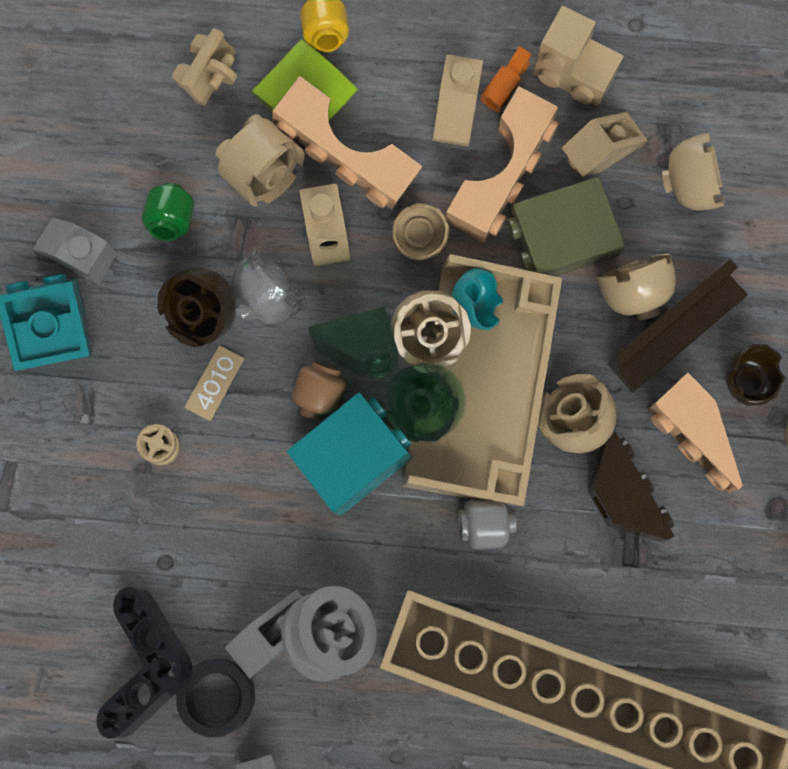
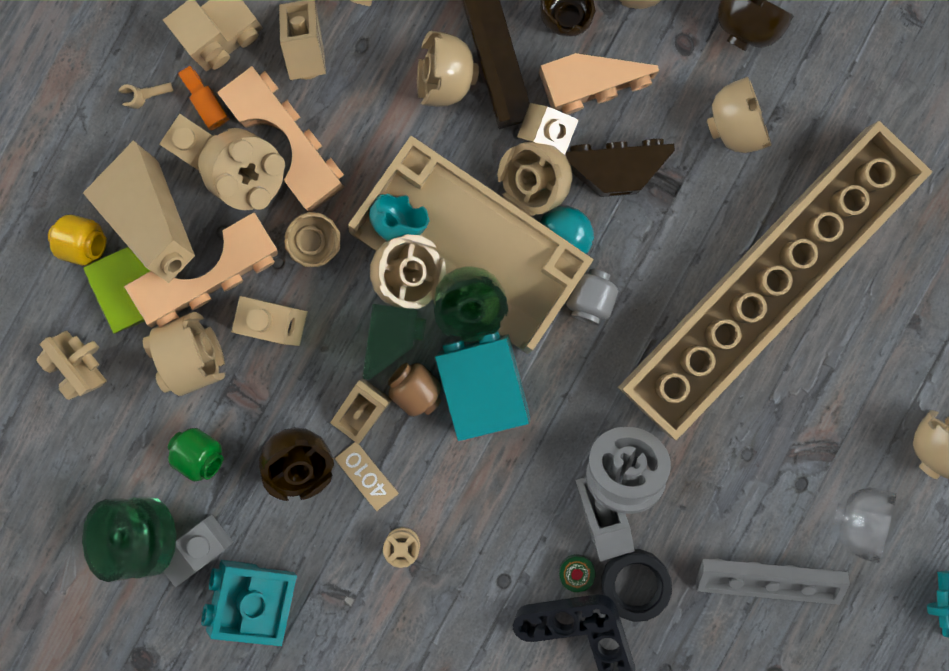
camera: 65 degrees left, 10 degrees up
(62, 181) = (128, 538): none -> clear green wheel
(203, 632) = (577, 573): none -> dark green tile
(264, 291) = (306, 399): clear cylinder -> none
(277, 348) = (360, 410): none -> tan slope
(377, 65) = (142, 211): none -> tan slope
(440, 150) = (257, 180): none -> tan brick
(483, 25) = (141, 95): none -> tan hand
(546, 473) = (570, 225): none -> teal hair
(565, 229) = (365, 111): olive brick -> none
(632, 405) = (547, 127): none -> brick
(730, 592) = (739, 118): none -> tan cylinder

